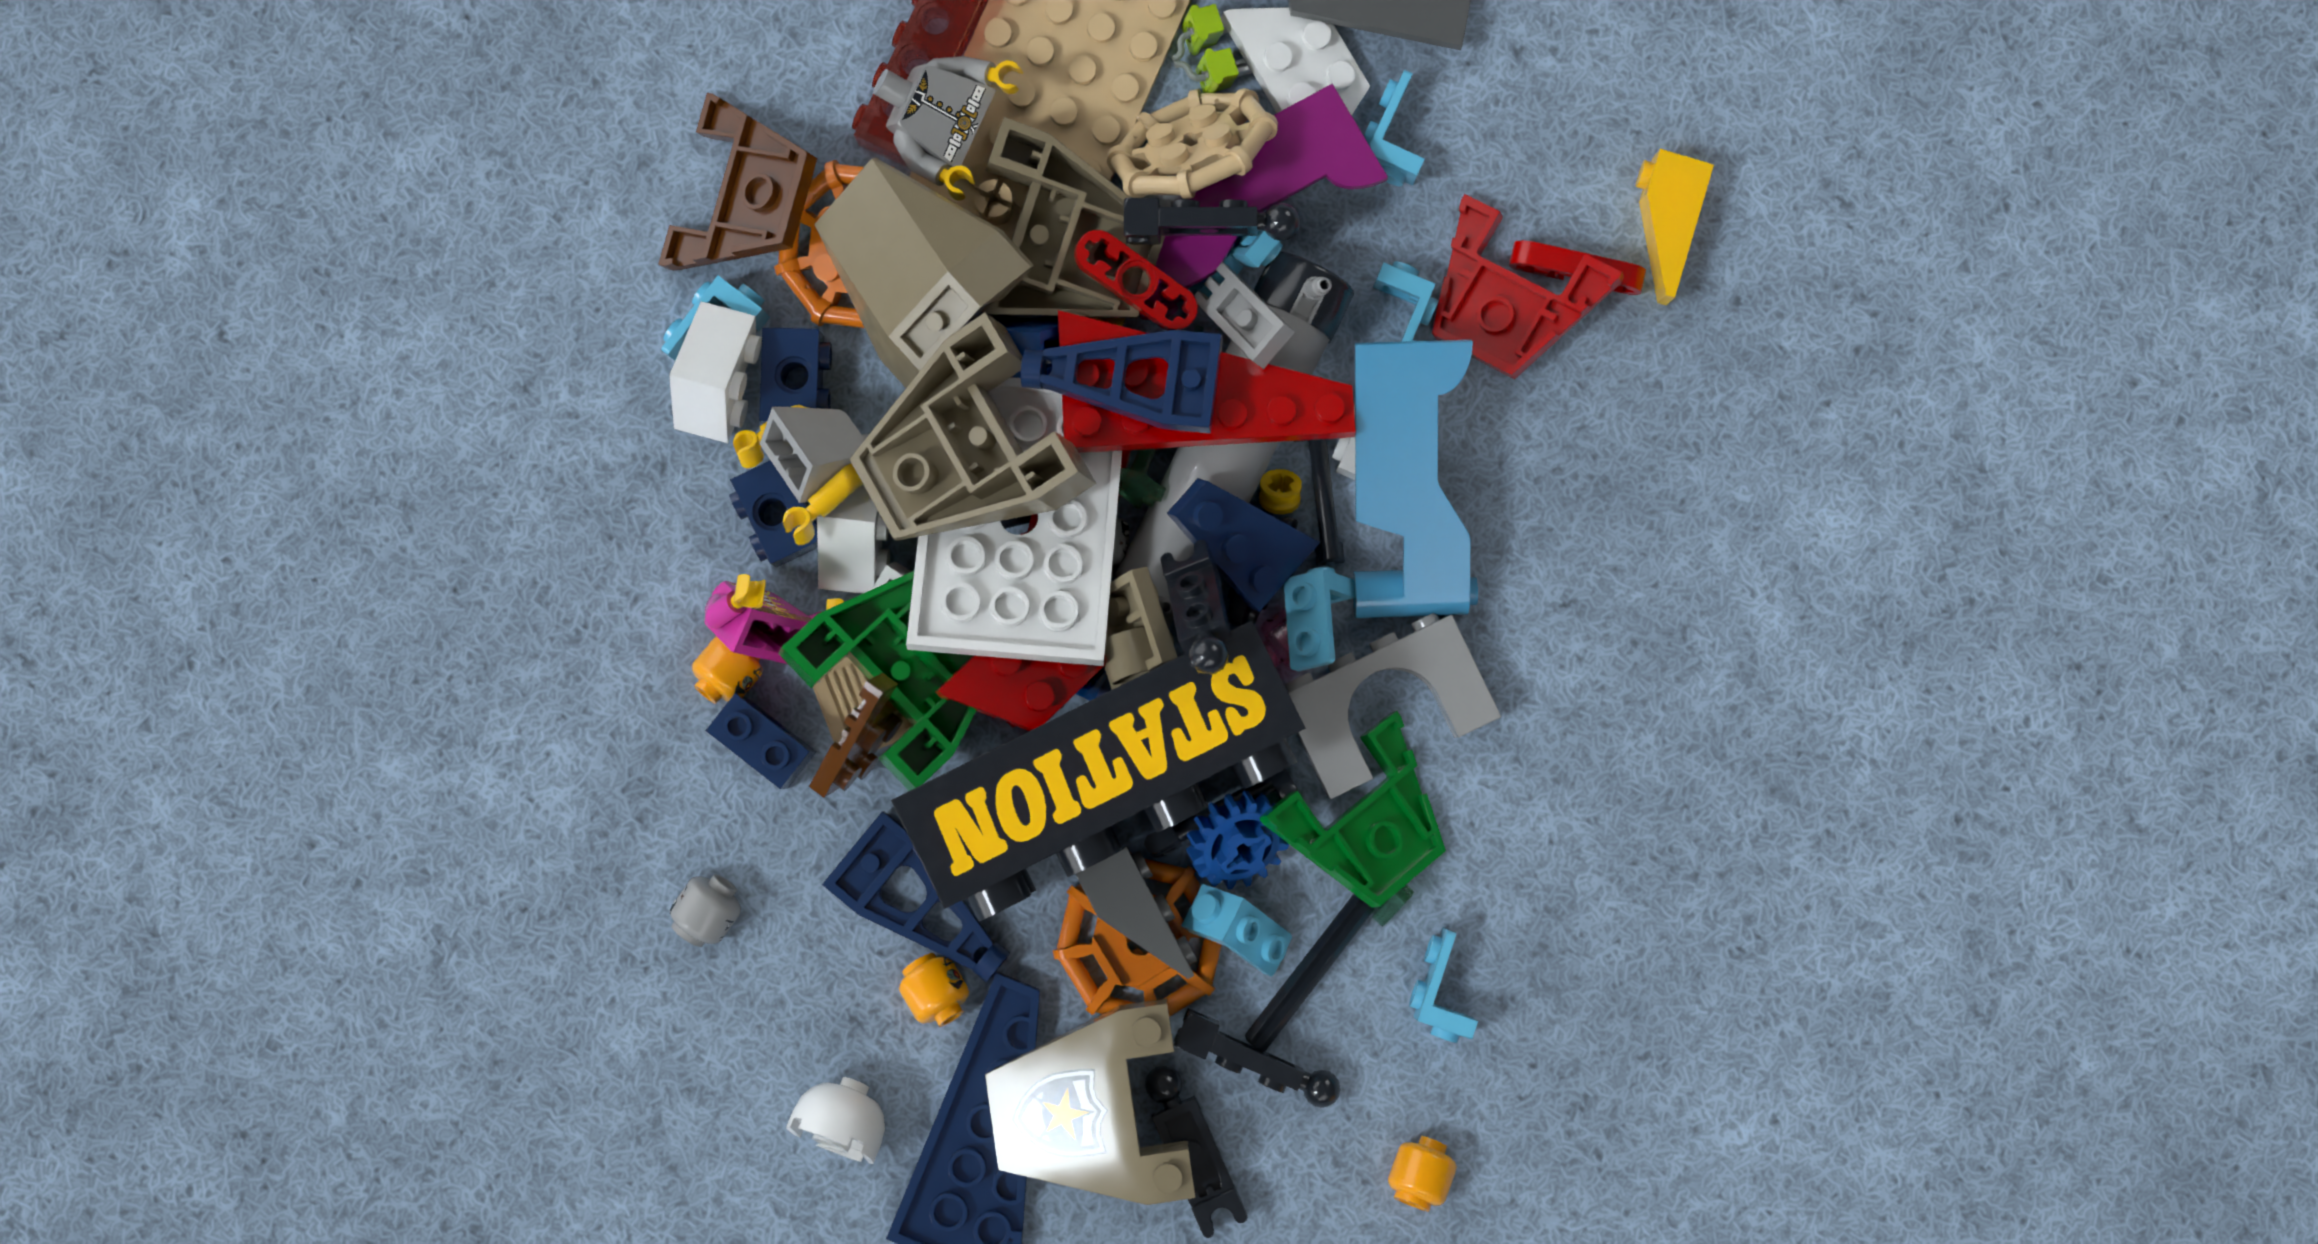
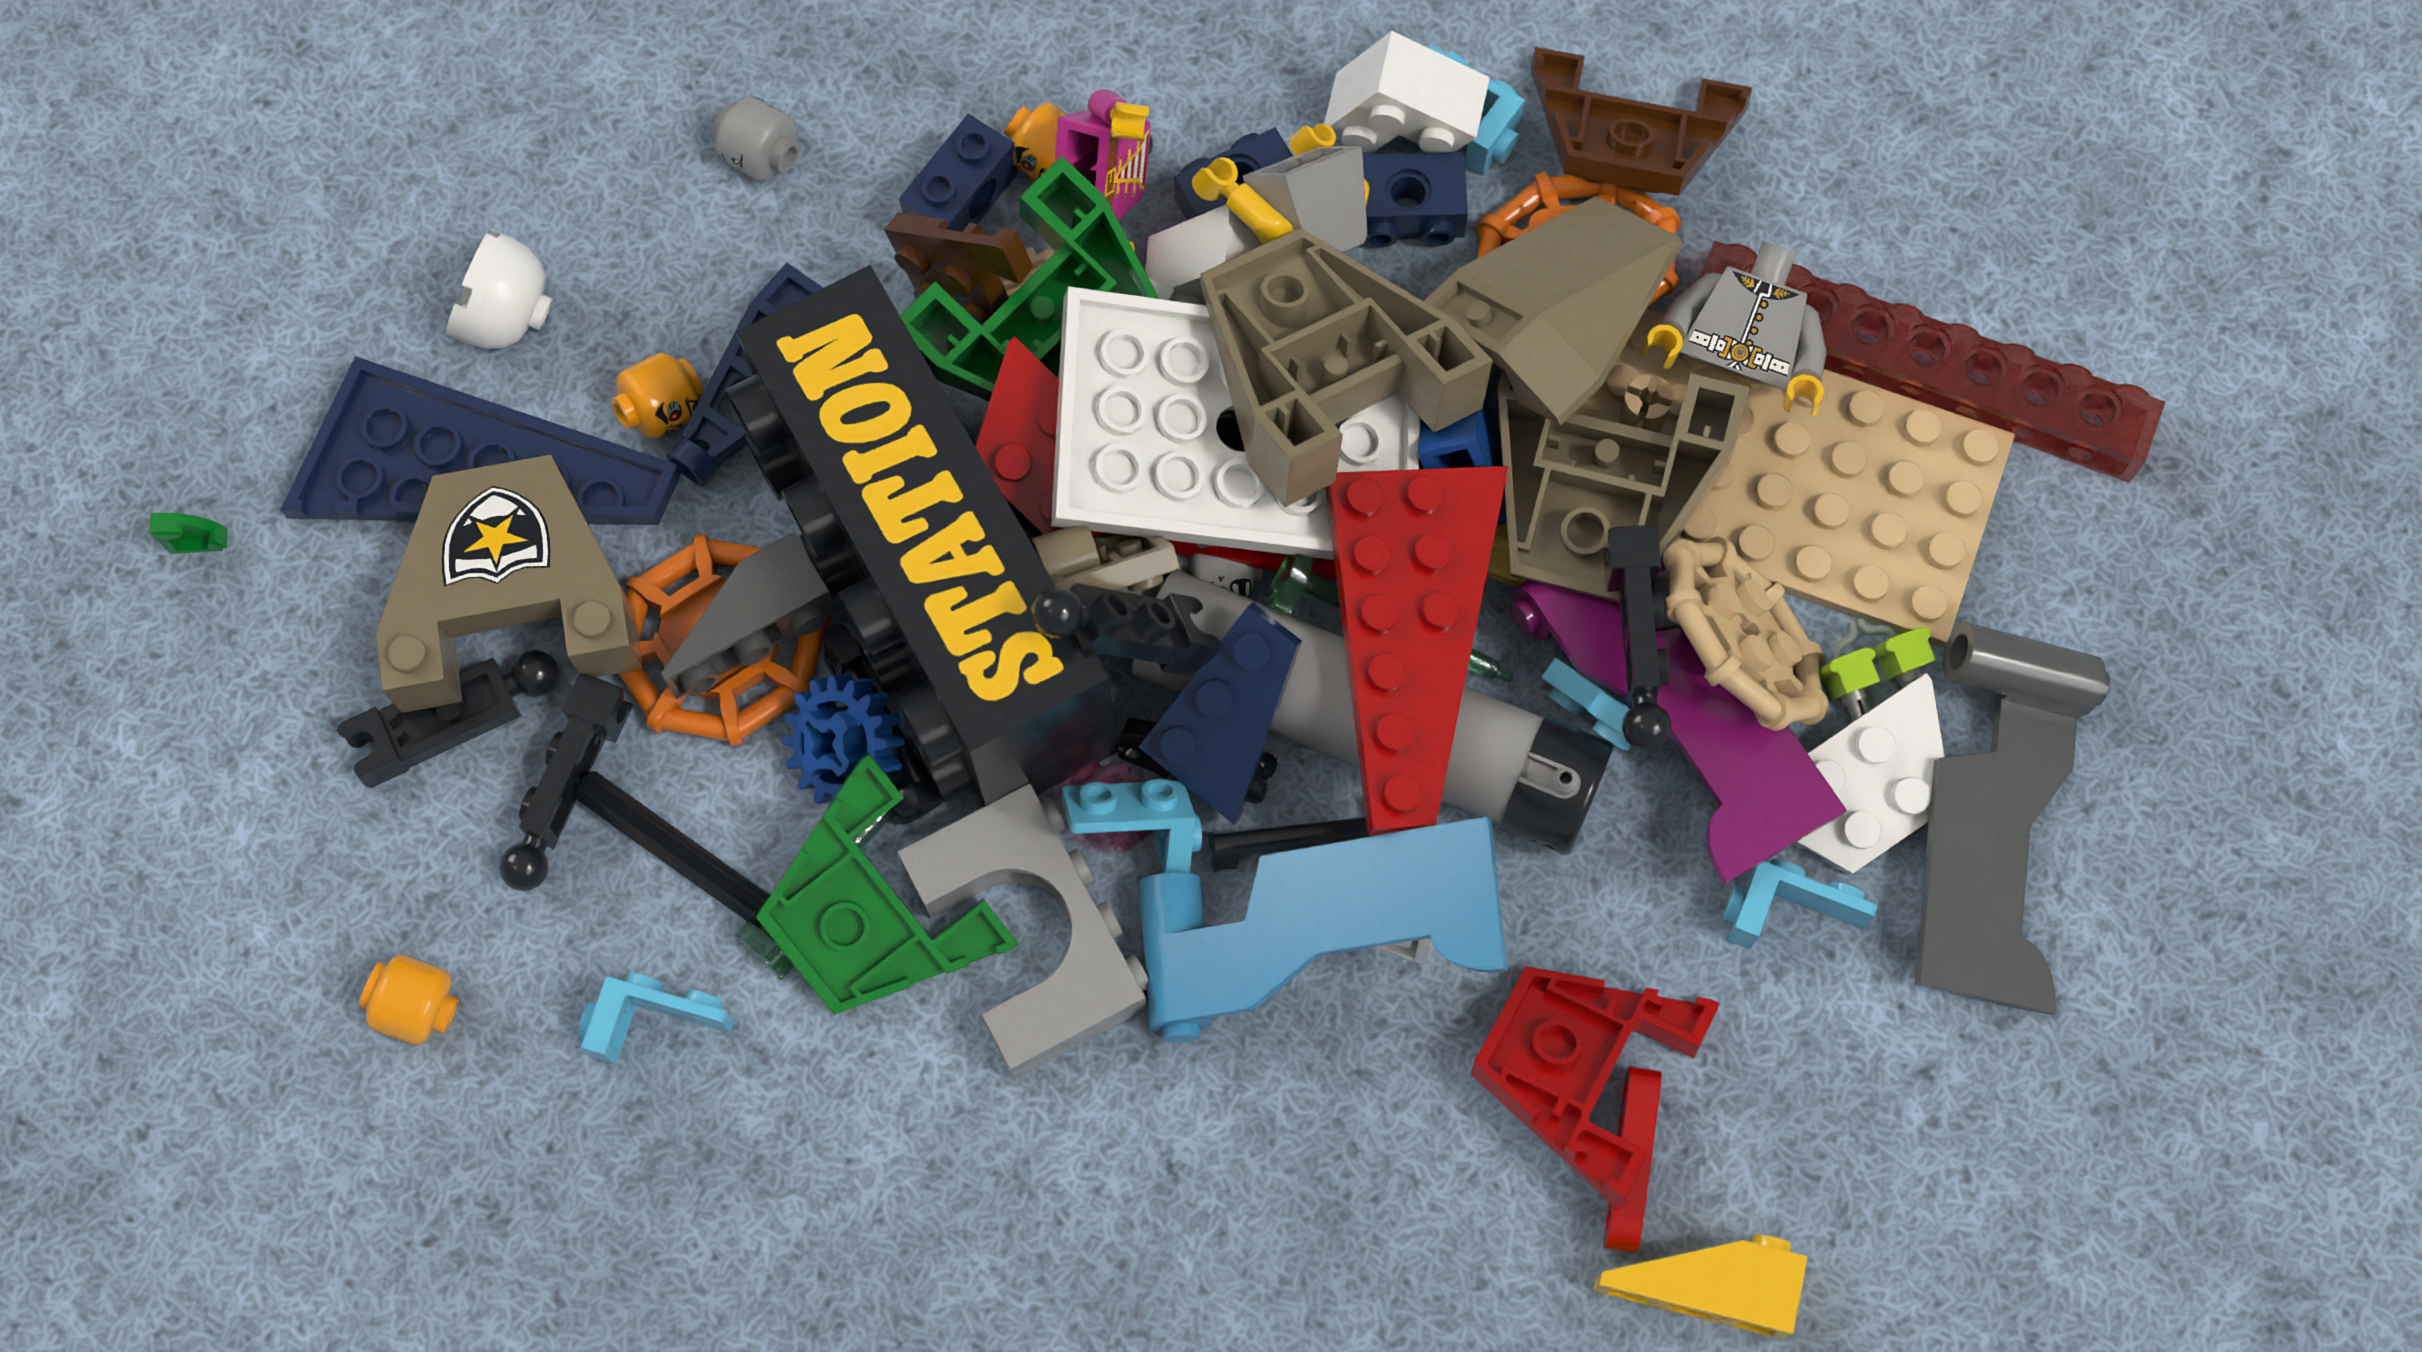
camera: 90 degrees right, 15 degrees down
(1155, 275) = (1563, 515): red beam -> none
(1190, 379) = (1421, 608): dark blue plate -> none
(1239, 927) = (727, 750): medium azure bracket -> none
(1244, 316) = (1519, 693): light grey hinge -> none
(1288, 491) = (1314, 775): yellow bush -> none
(1403, 282) = (1562, 953): medium azure bracket -> none

